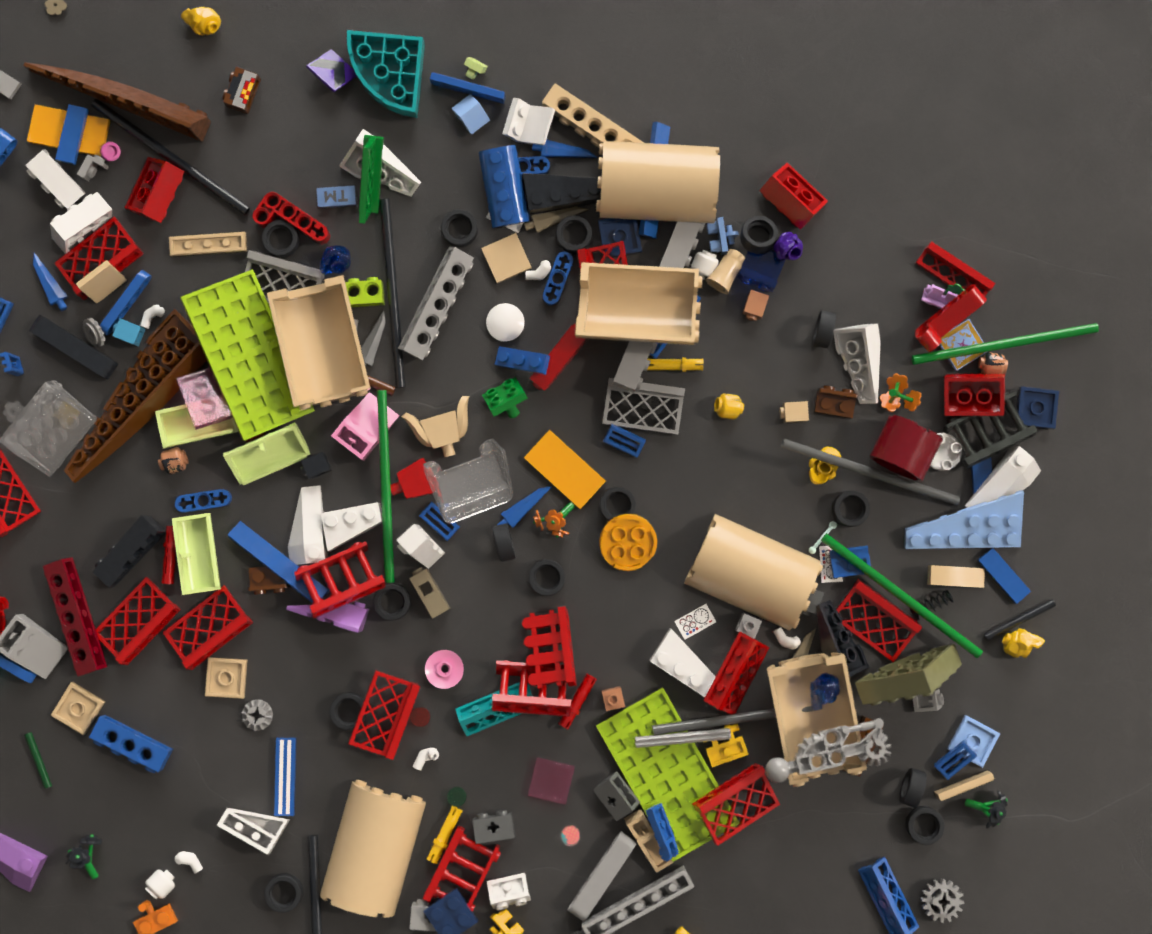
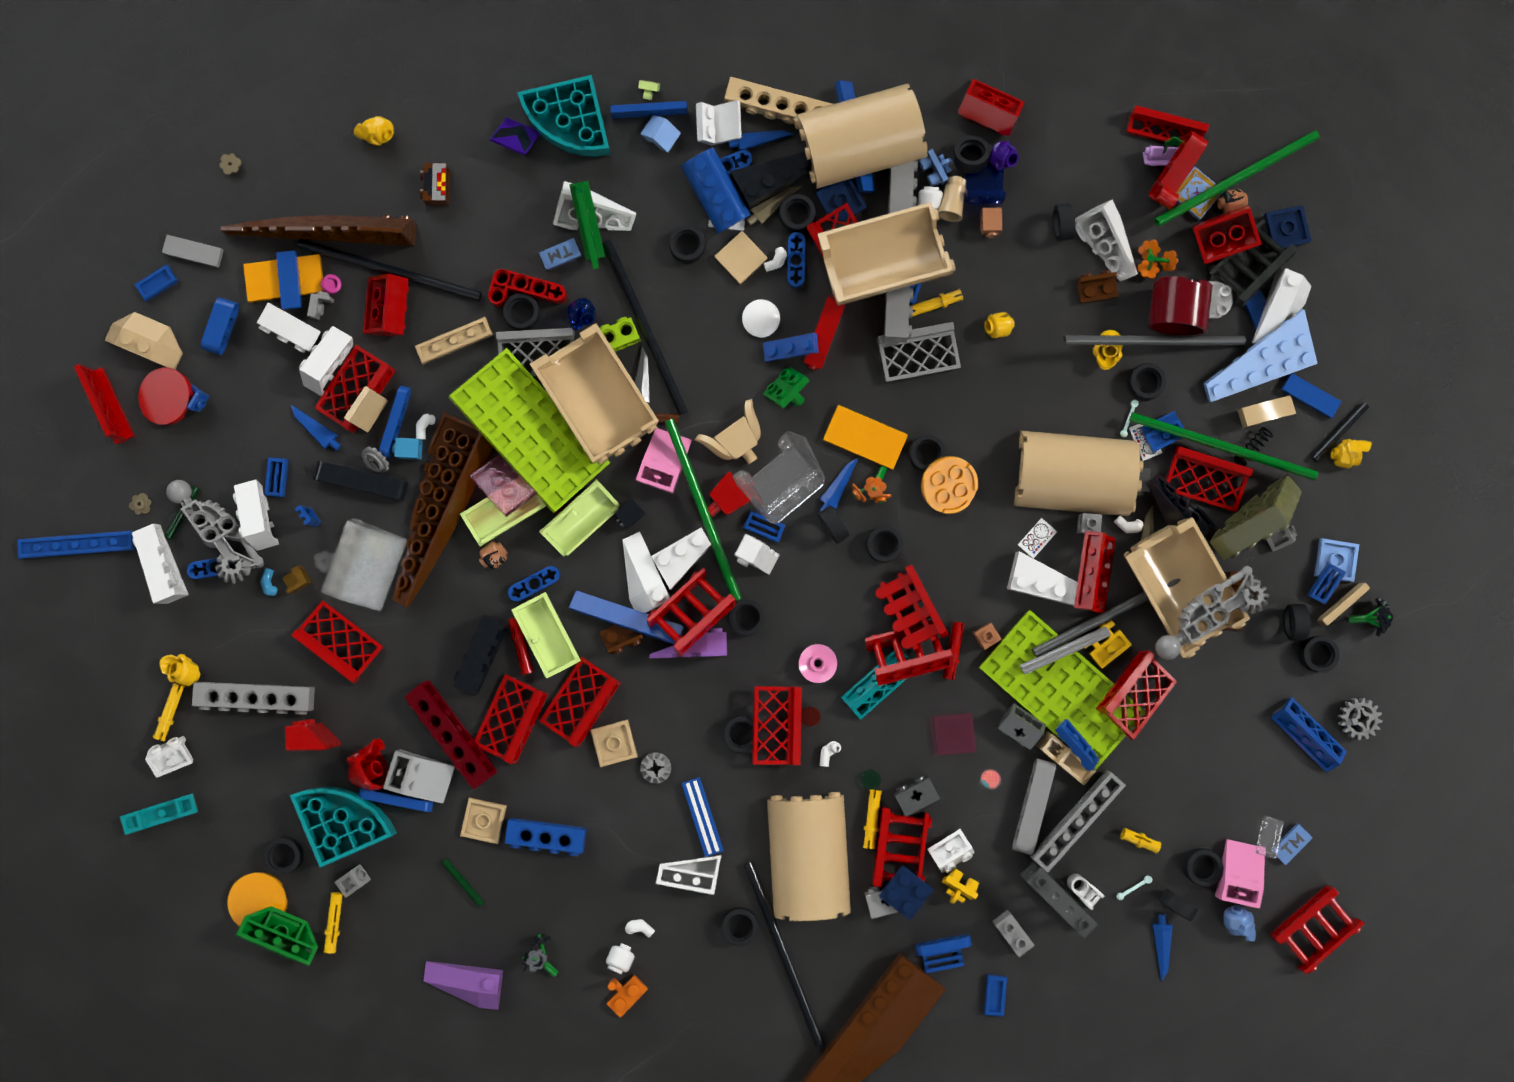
camera: 20 degrees left, 0 degrees up
(426, 308) = (688, 292): light grey brick -> none
(429, 592) = (778, 596): dark tan brick -> none
(628, 434) = (896, 388): blue tile -> none
(794, 412) = (1062, 309): tan brick -> none
(824, 690) = (1183, 559): clear blue head -> none

